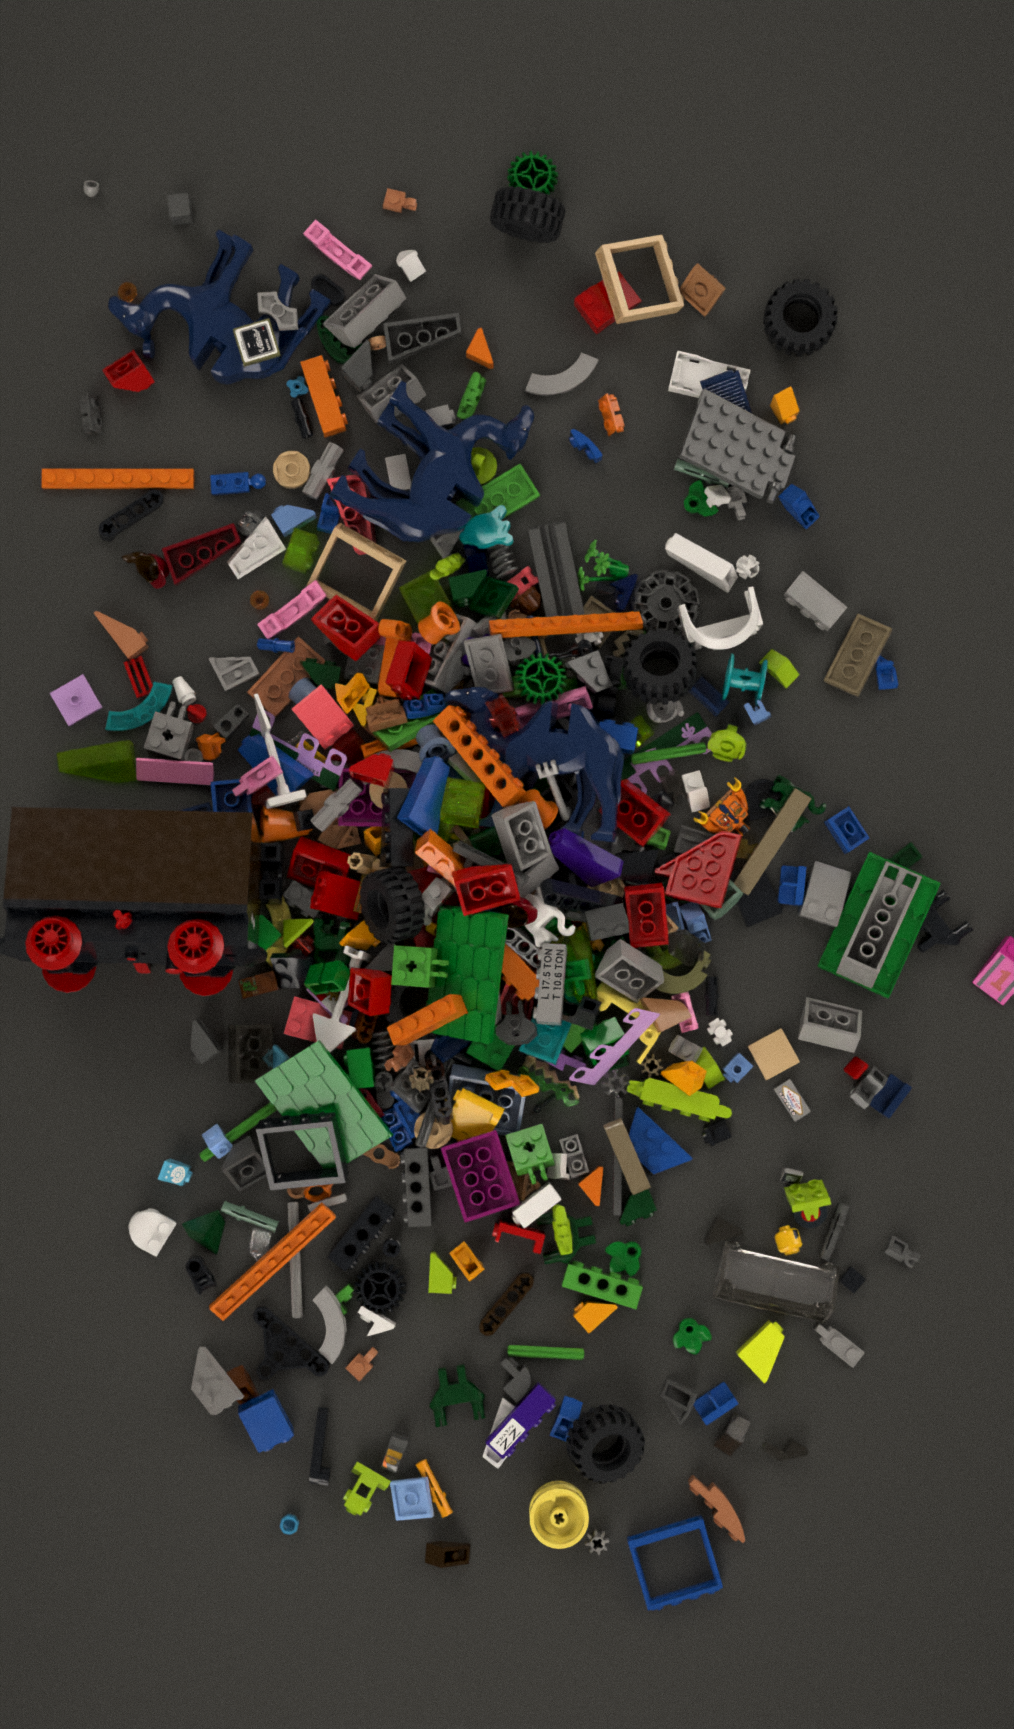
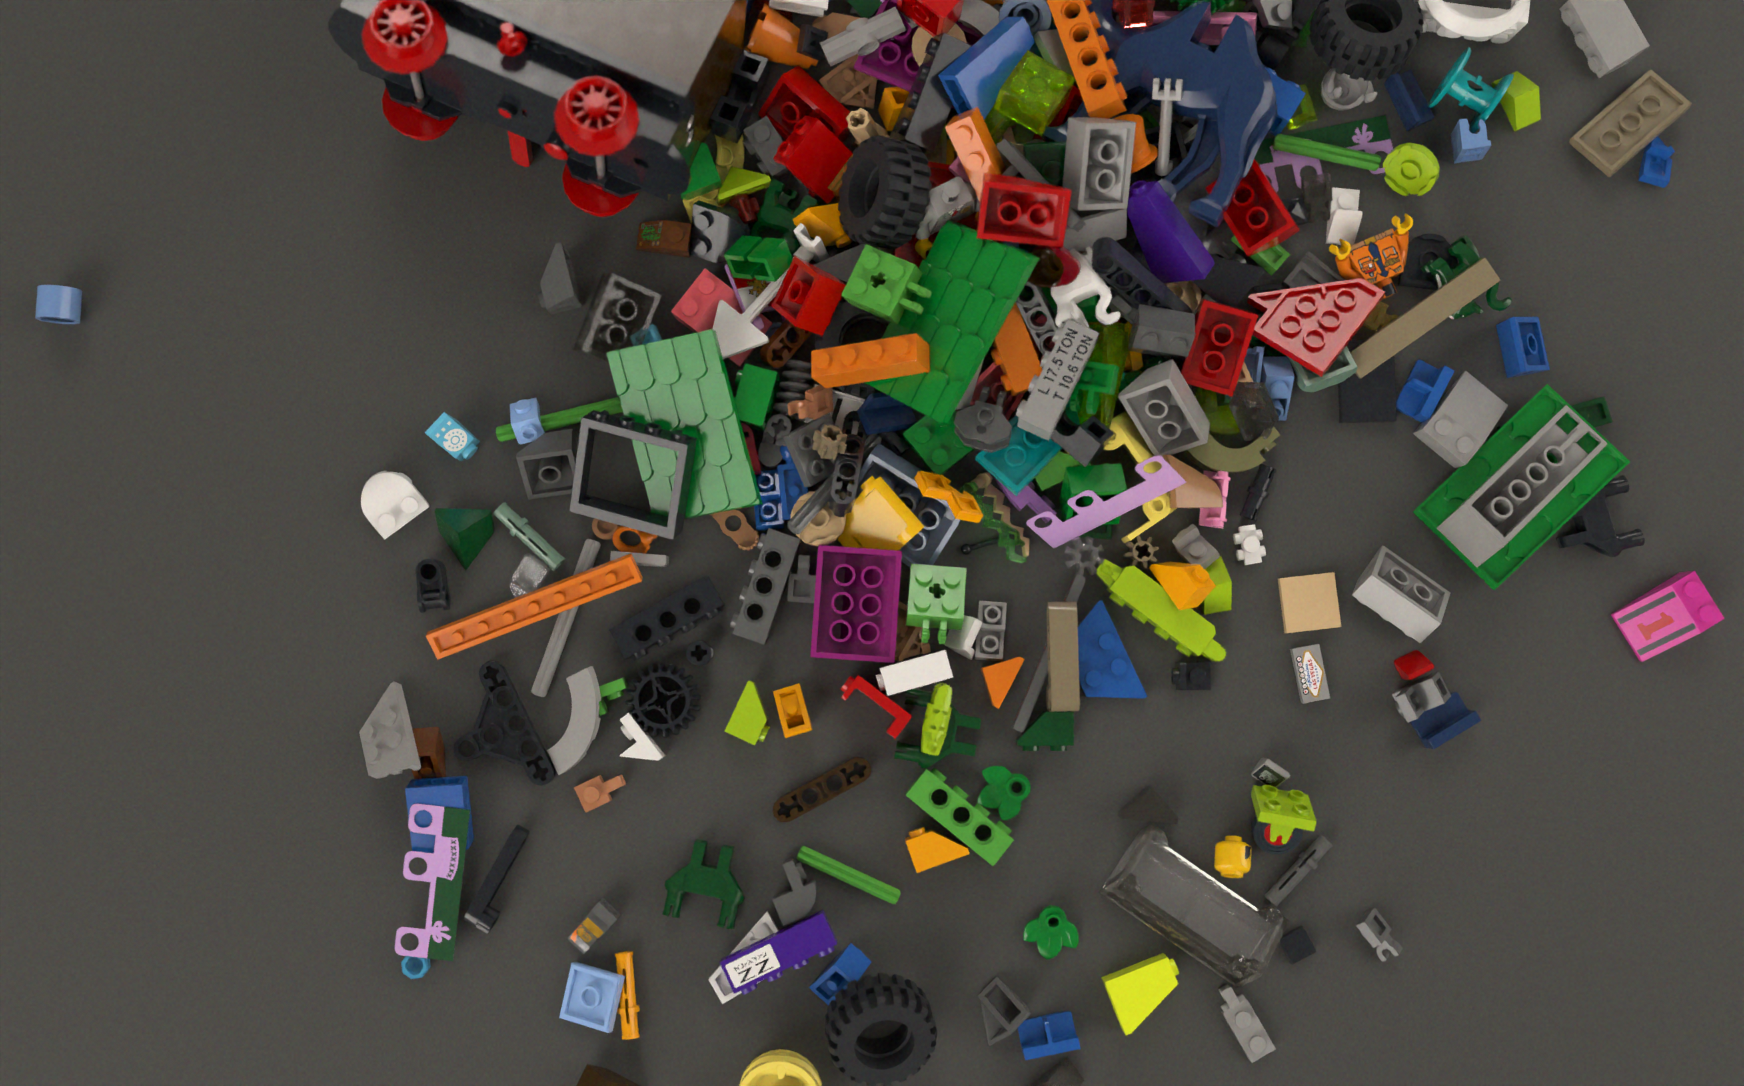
camera: 20 degrees right, 0 degrees up
(286, 1459) = (445, 874): none -> piece
(355, 1503) = (512, 970): lime tile -> none
(736, 1068) = (1254, 601): medium blue brick -> none

